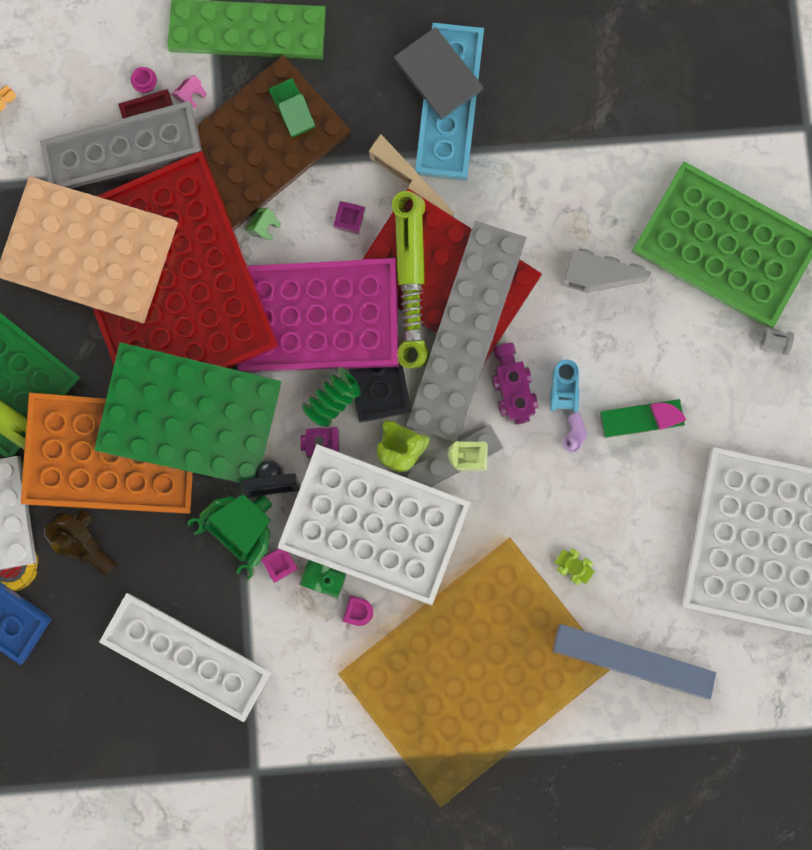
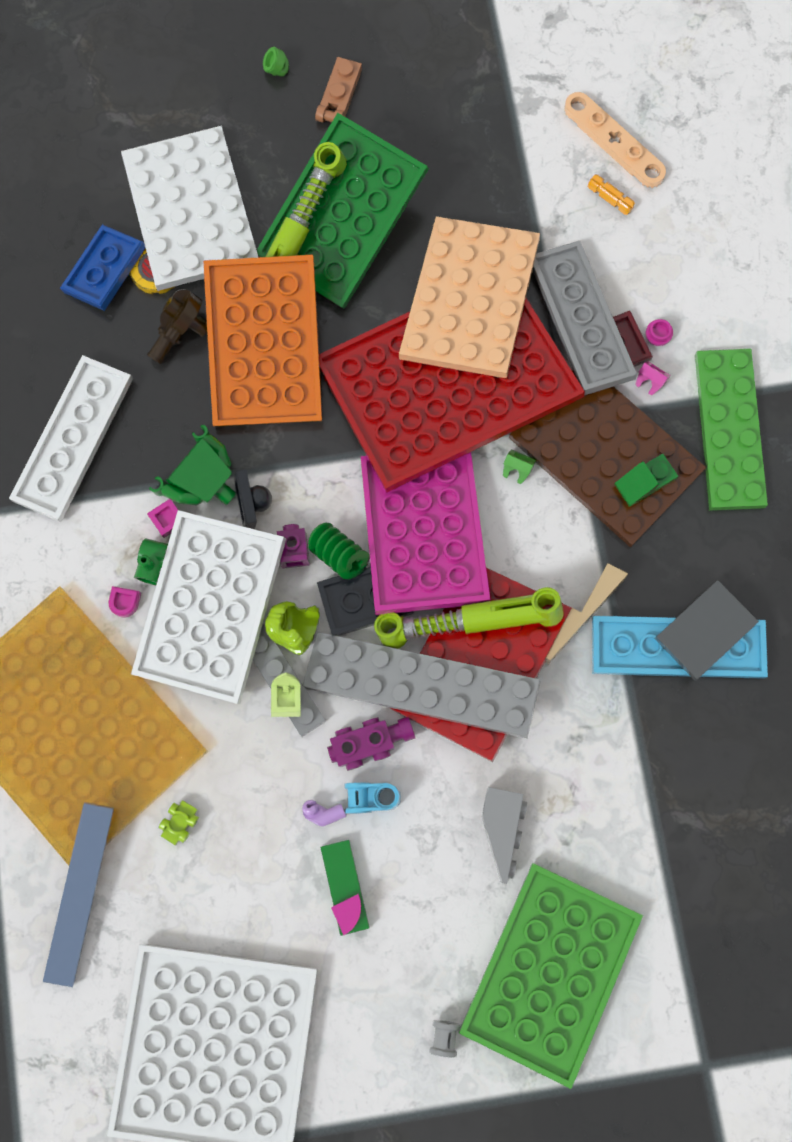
camera: 90 degrees right, 5 degrees down
(187, 414) = (308, 409): green plate -> none
(349, 217) = (535, 552): magenta plate -> none

